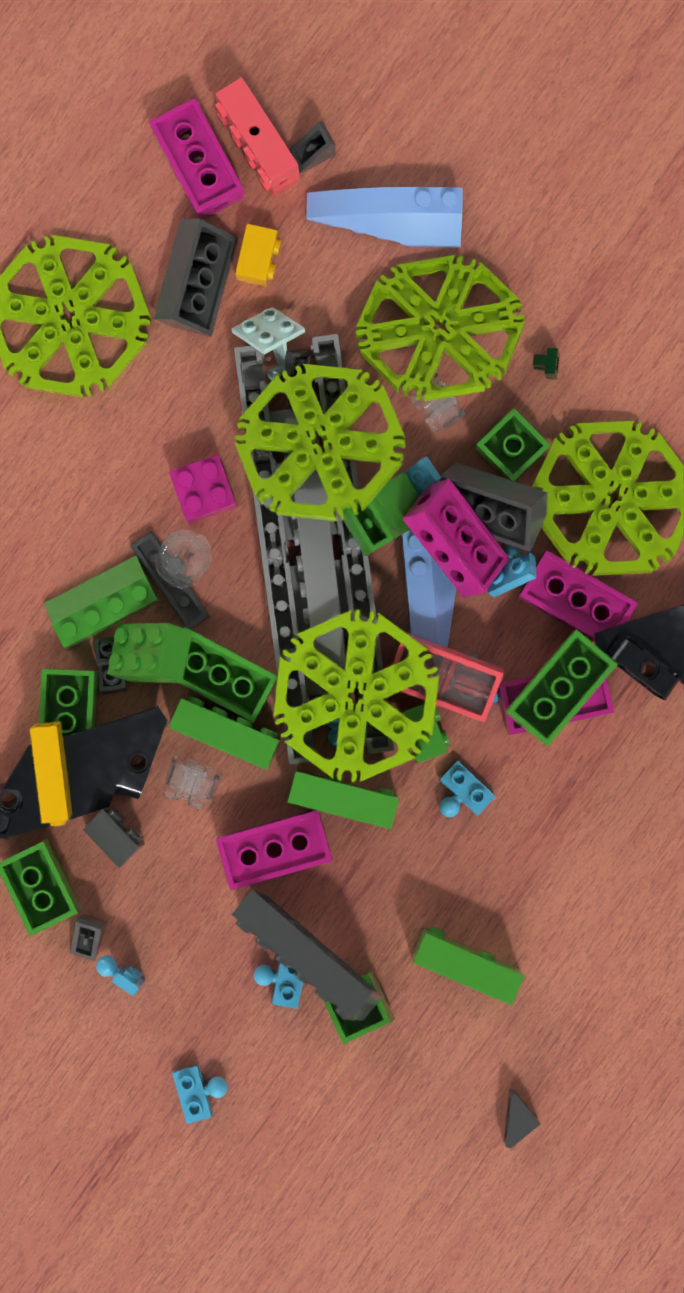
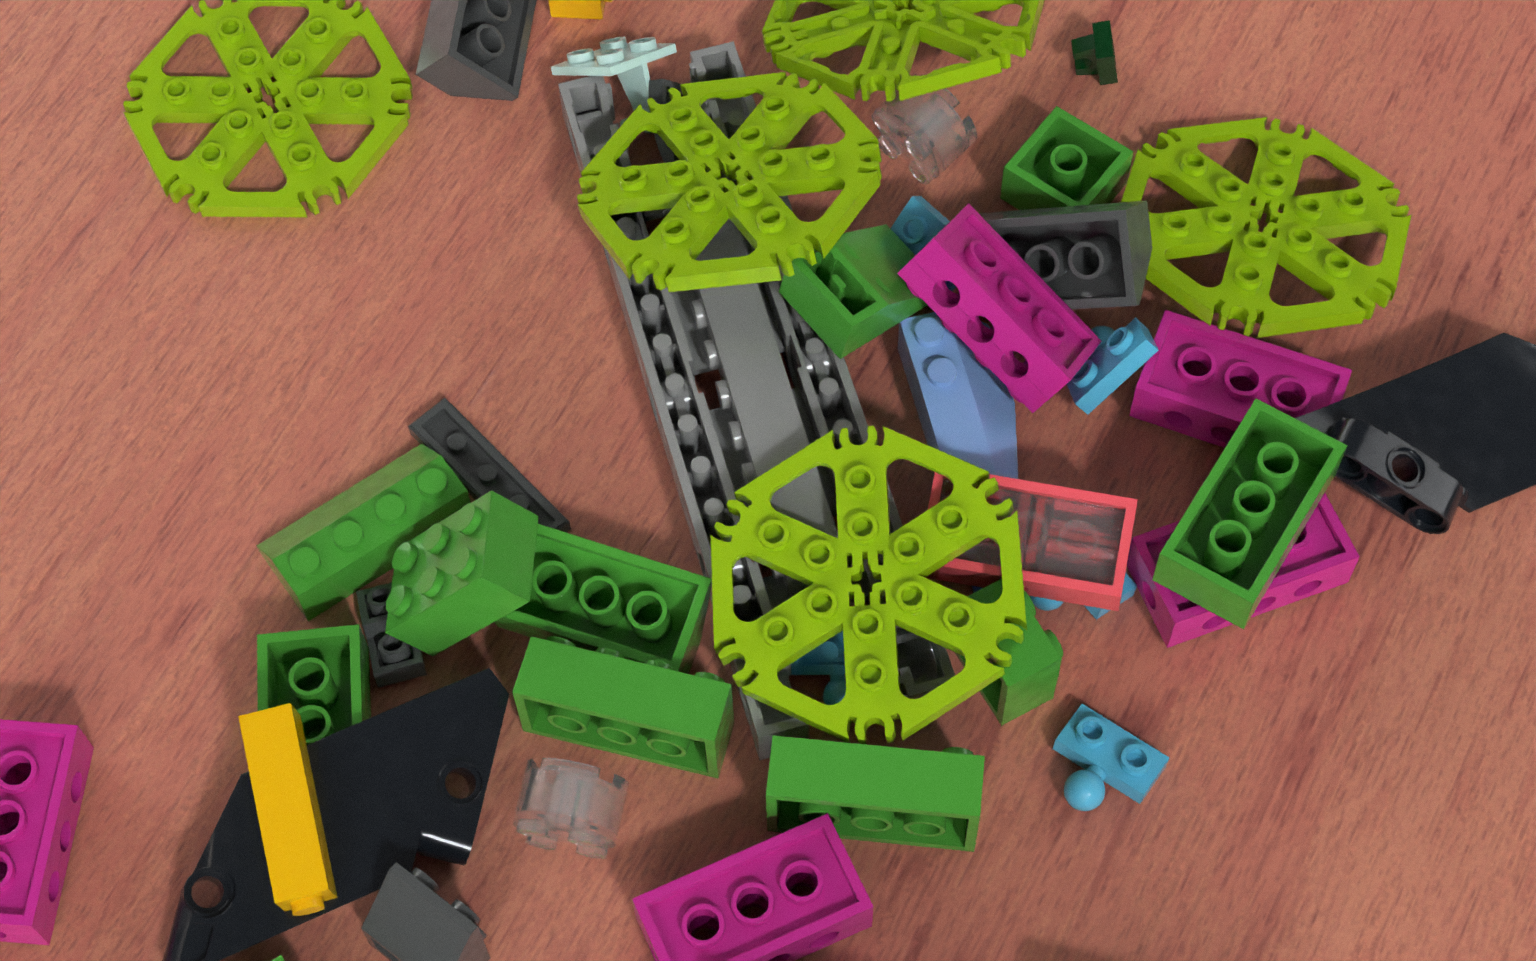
camera: 10 degrees left, 25 degrees down
(193, 548) = (508, 422): clear brick -> none
(203, 489) = (532, 315): dark pink brick -> none

